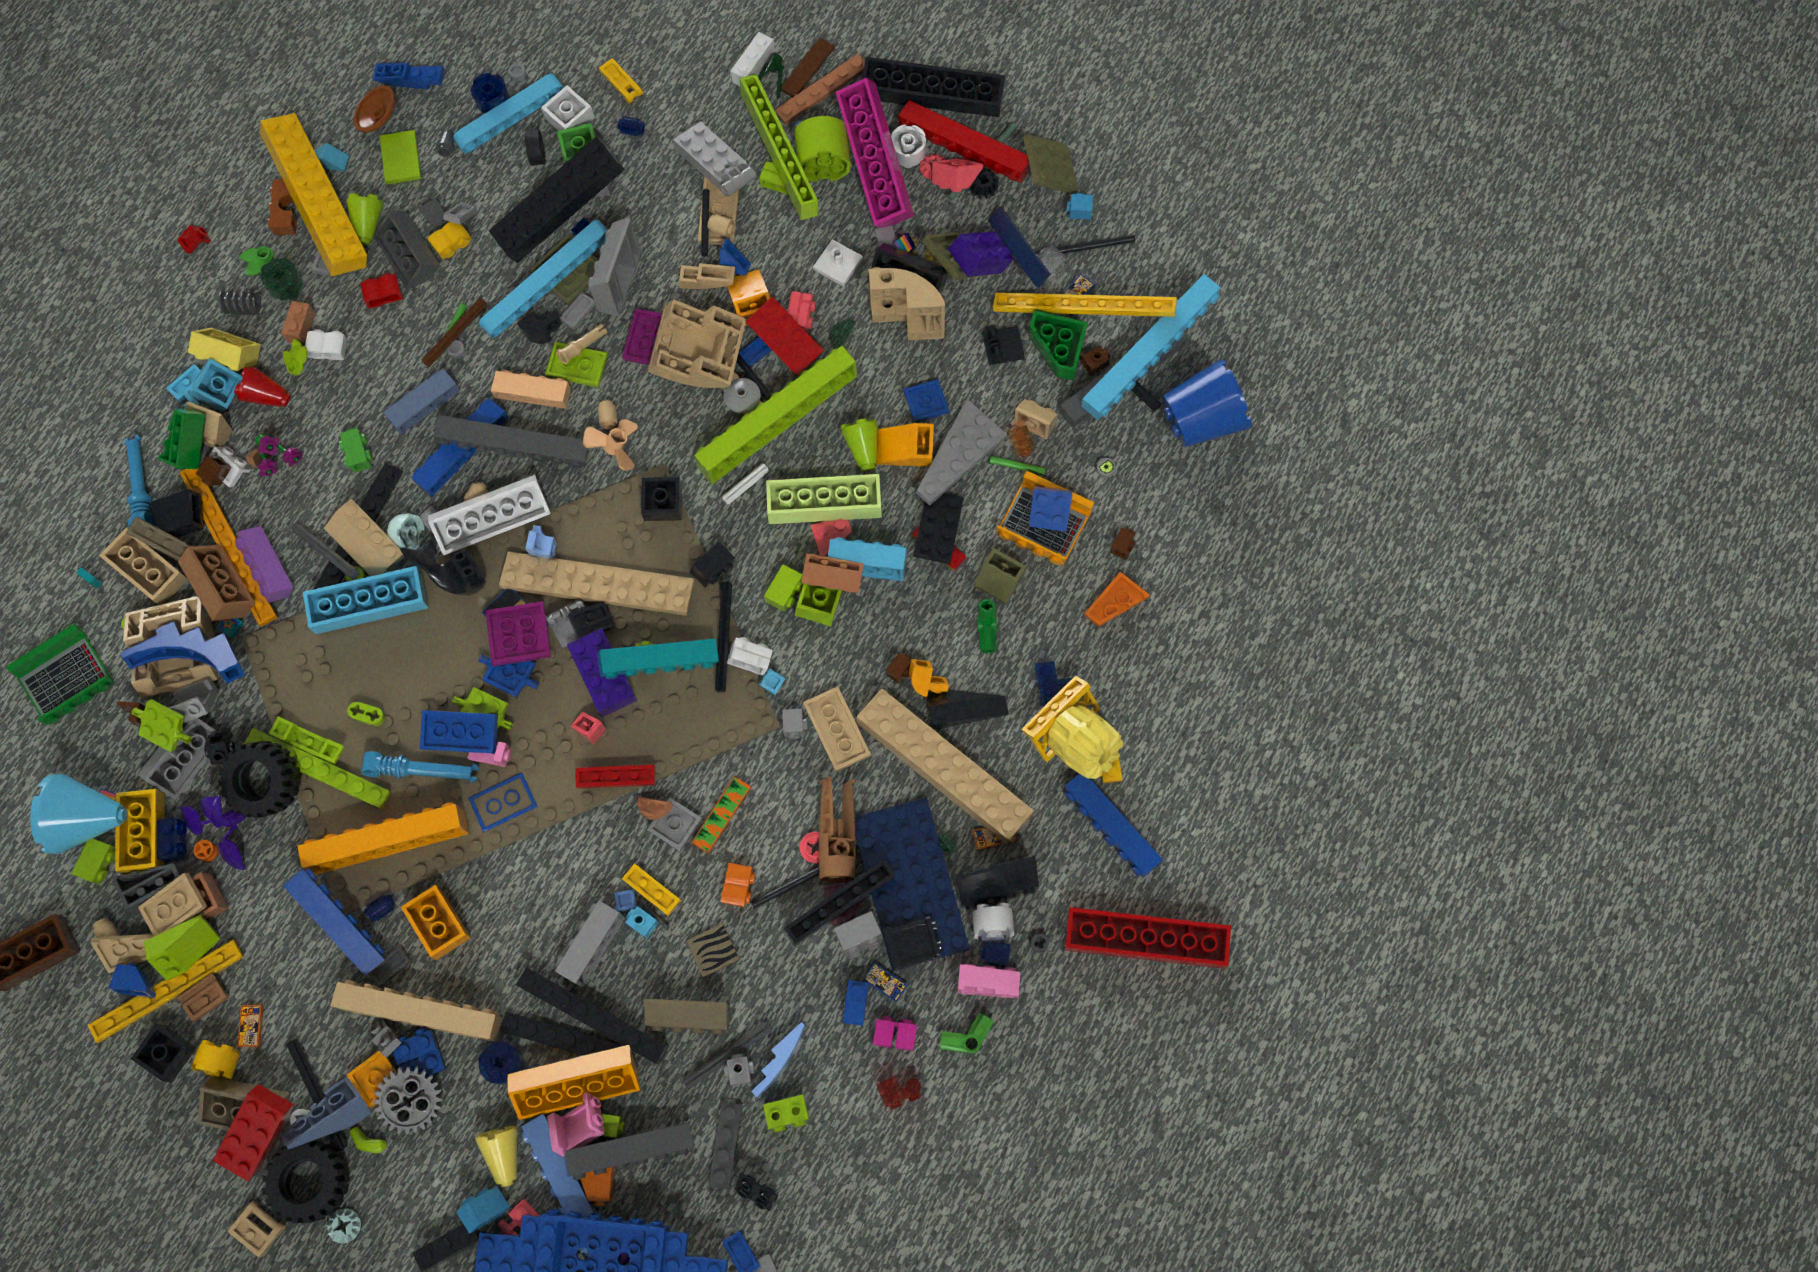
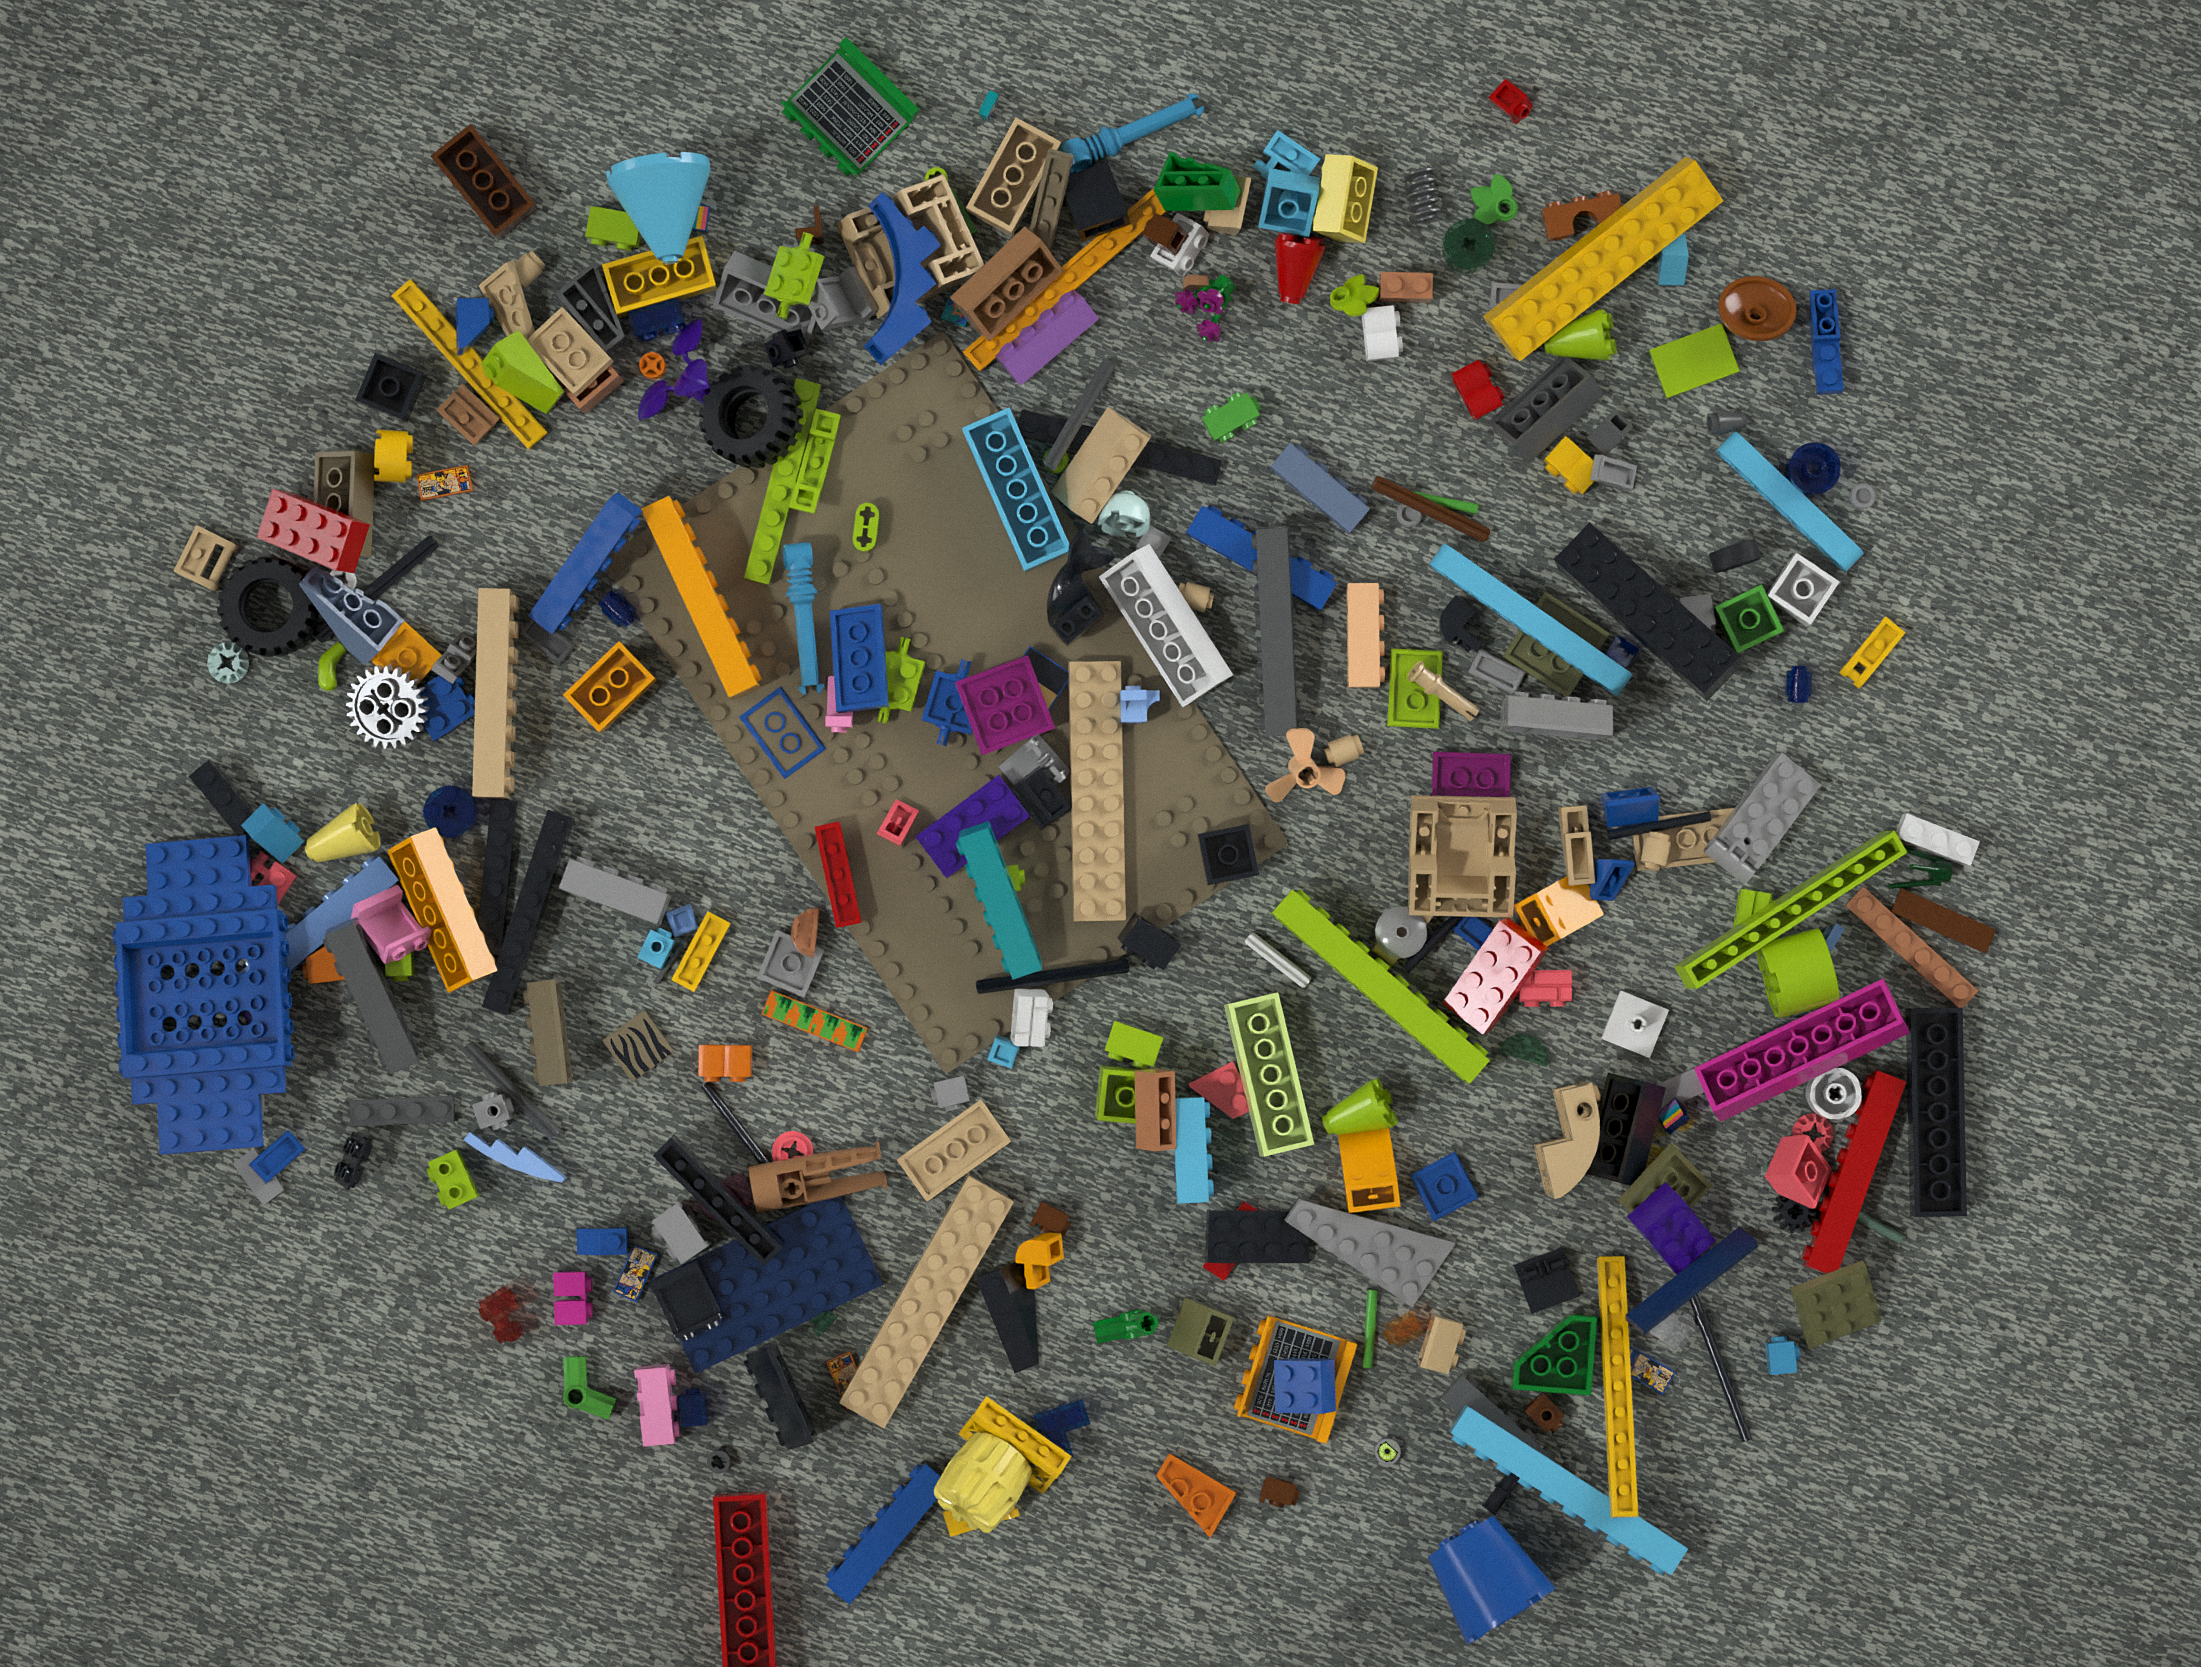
camera: 75 degrees right, 15 degrees up
(689, 237) = (1630, 806): none -> blue slope
(993, 922) = (731, 1398): white brick -> none

